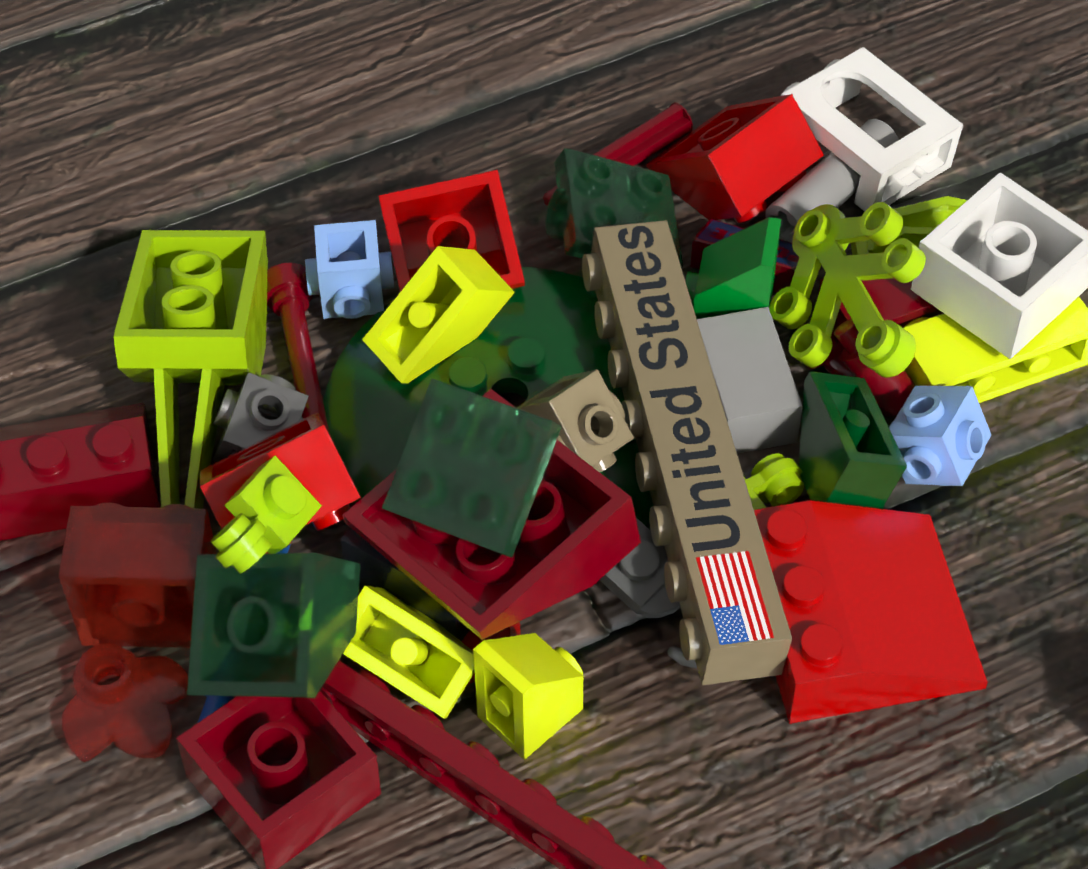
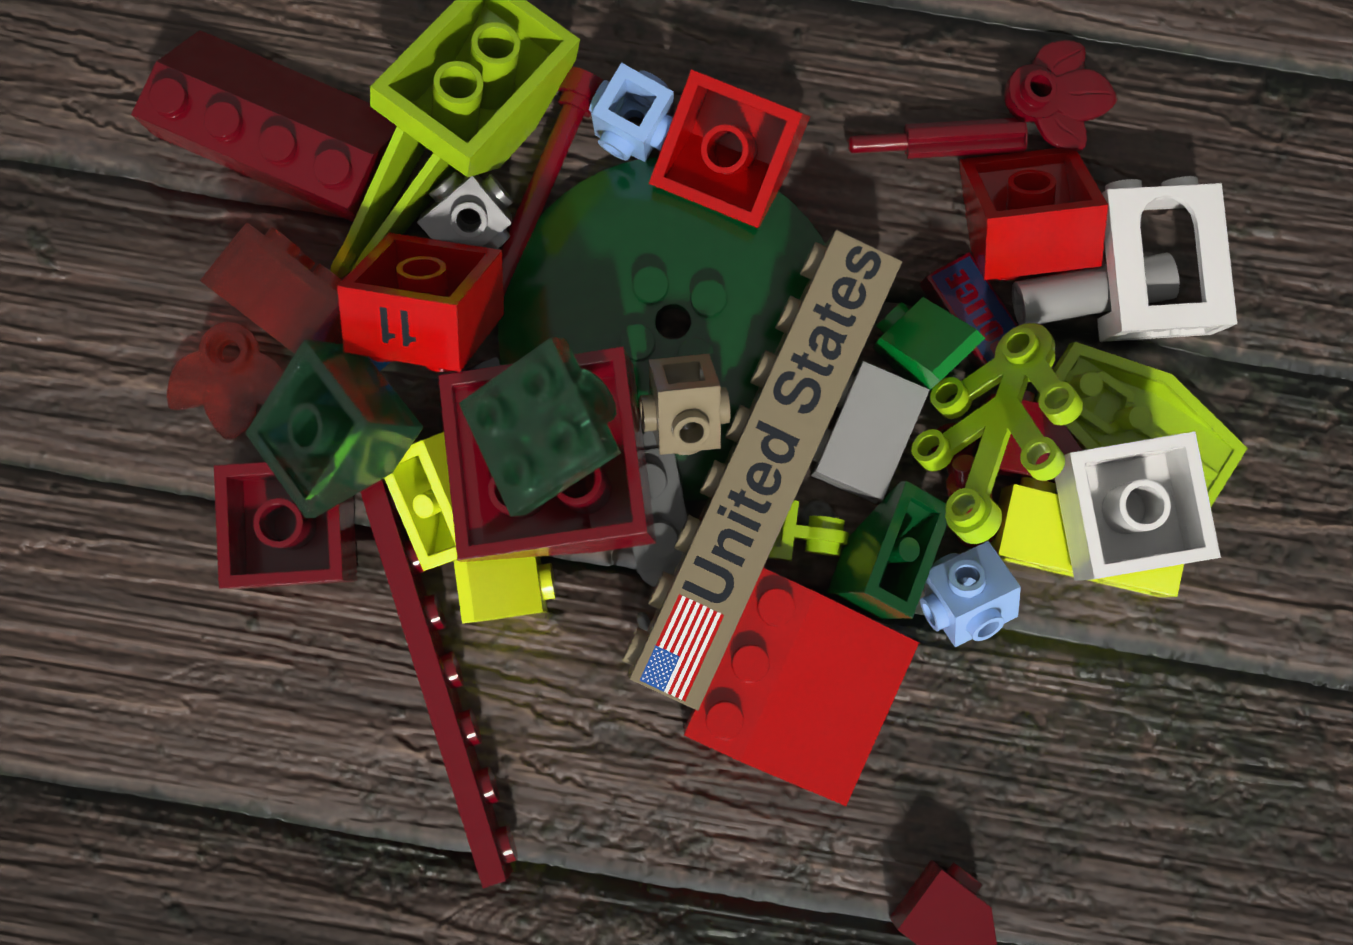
camera: 35 degrees right, 30 degrees up
(267, 516) = (371, 349): lime plate -> none
(437, 312) = (660, 219): neon yellow slope -> none
(604, 194) = (888, 198): clear green plate -> none
(685, 77) = (1066, 91): none -> dark red plate

